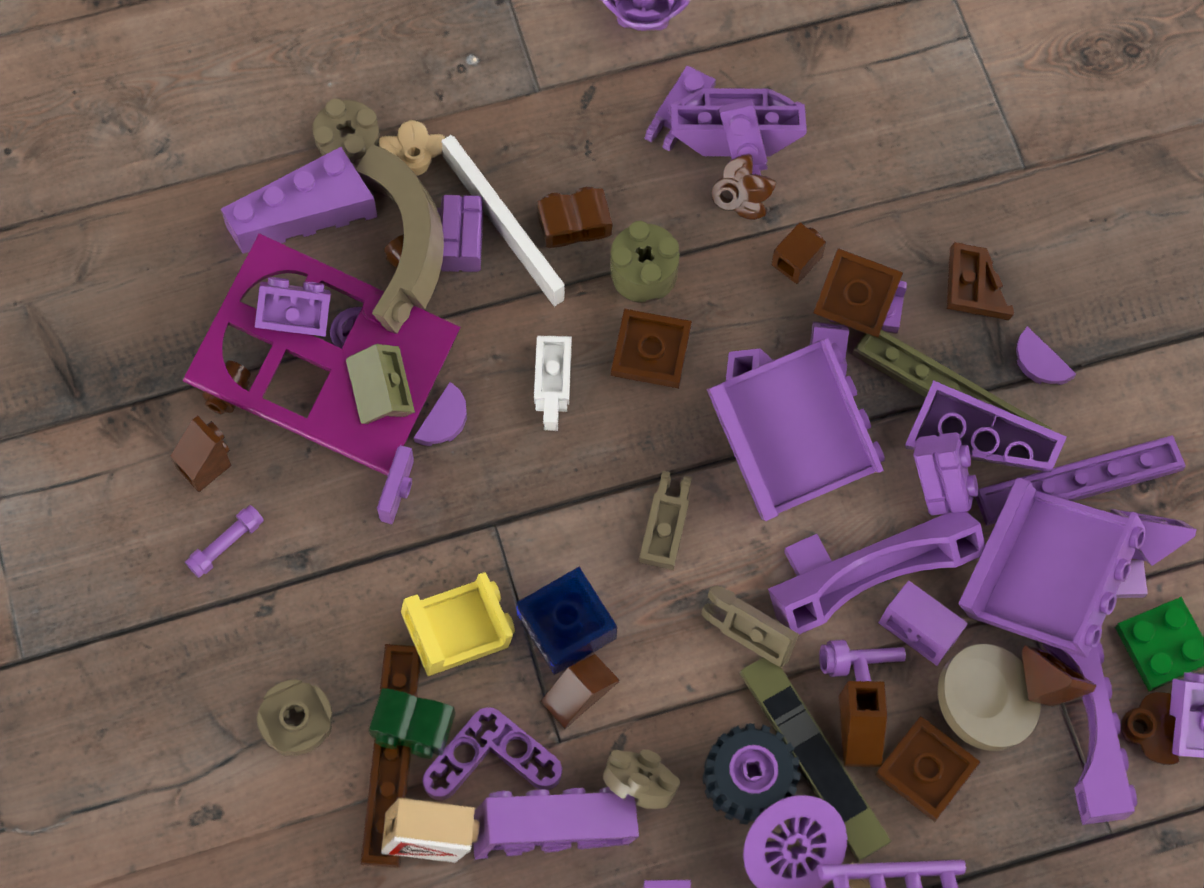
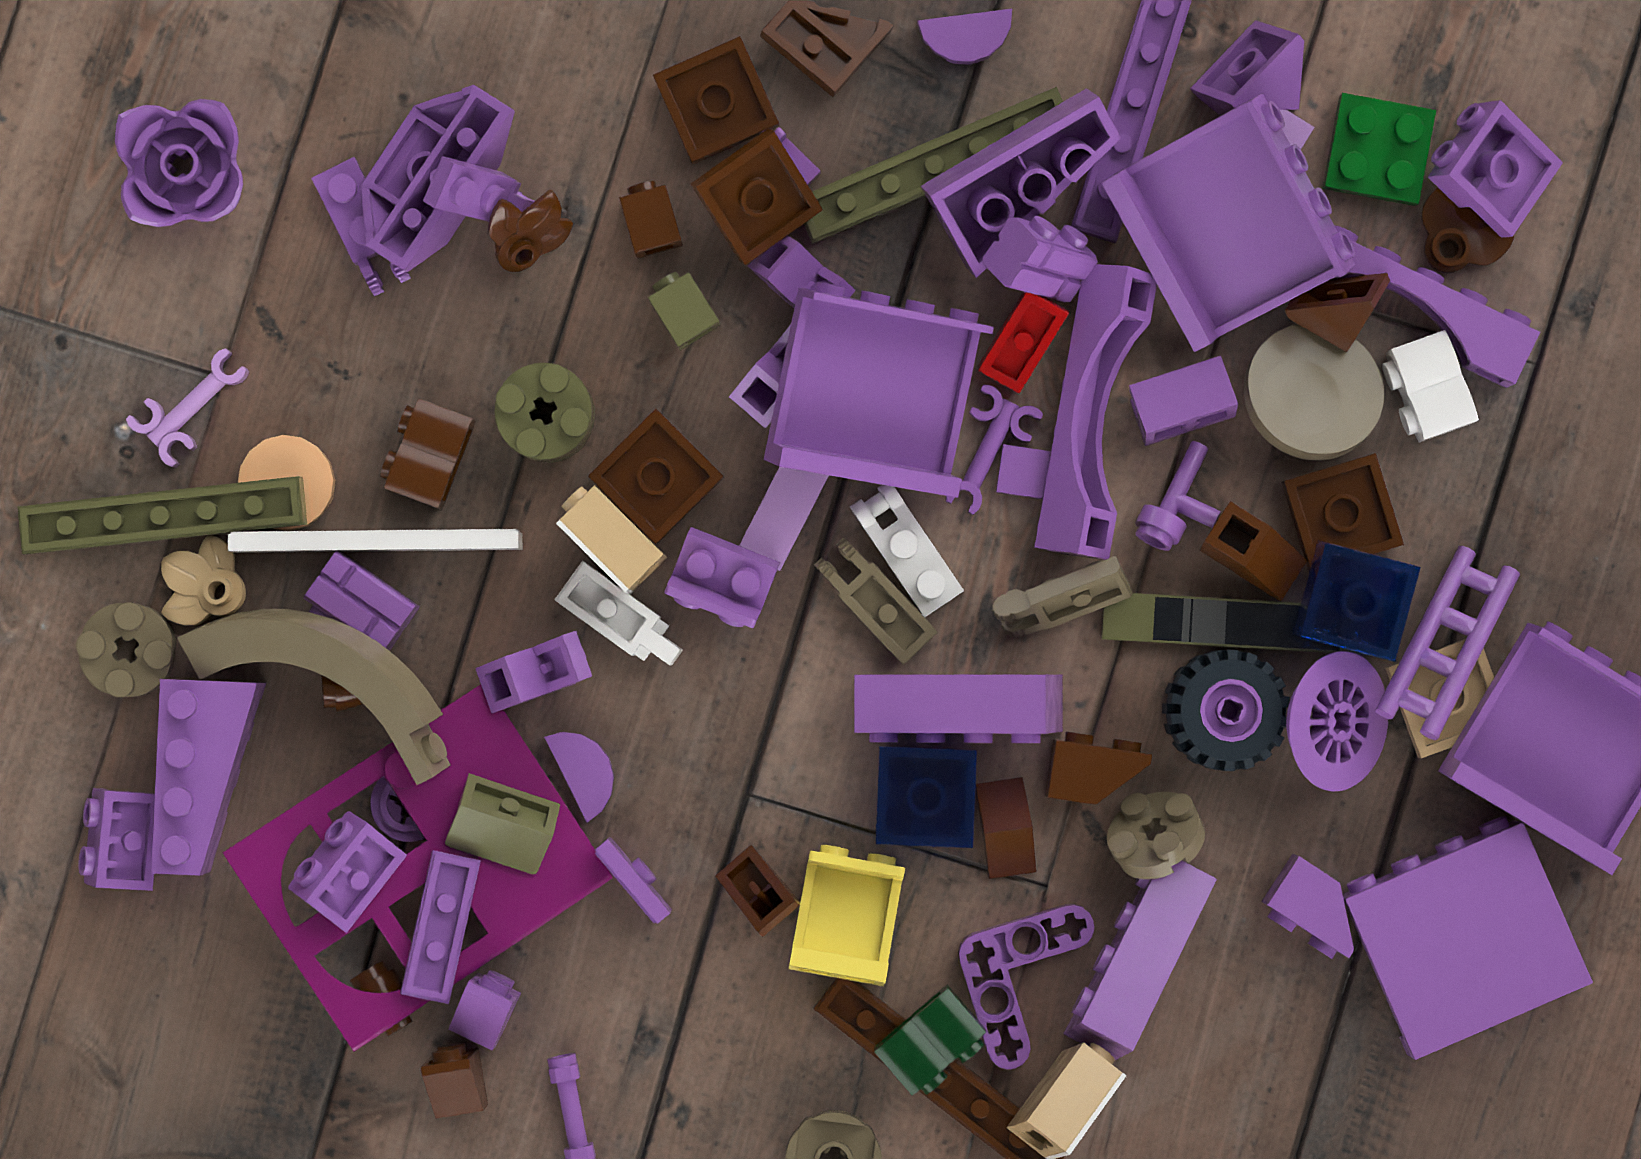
camera: 55 degrees left, 20 degrees up
(219, 191) = (118, 840): none -> medium lavender bracket
(258, 444) = (485, 1008): none -> medium lavender slope
(292, 384) = (440, 927): none -> medium lavender tile
(437, 564) = (757, 890): none -> reddish brown slope
(438, 102) = (162, 515): none -> olive tile
(483, 348) = (533, 672): none -> medium lavender brick
(489, 75) = (163, 429): none -> lavender bar
(504, 155) = (293, 457): none -> light nougat tile
(595, 339) = (610, 538): none -> tan piece
(617, 421) = (721, 578): none -> medium lavender bracket
(640, 608) = (958, 704): none -> medium lavender wedge
(652, 717) = (1089, 771): none -> reddish brown slope
(683, 434) = (783, 513): none -> lavender tile
(710, 521) = (908, 551): none -> white plate
(760, 302) = (683, 309): none -> olive brick
(832, 524) = (1004, 416): none -> medium lavender bar
(880, 803) = (1356, 600): none -> clear blue brick
(888, 501) = (1022, 340): none -> red plate
(897, 242) = (716, 100): none -> reddish brown plate
(1047, 770) = (1430, 387): none -> white brick

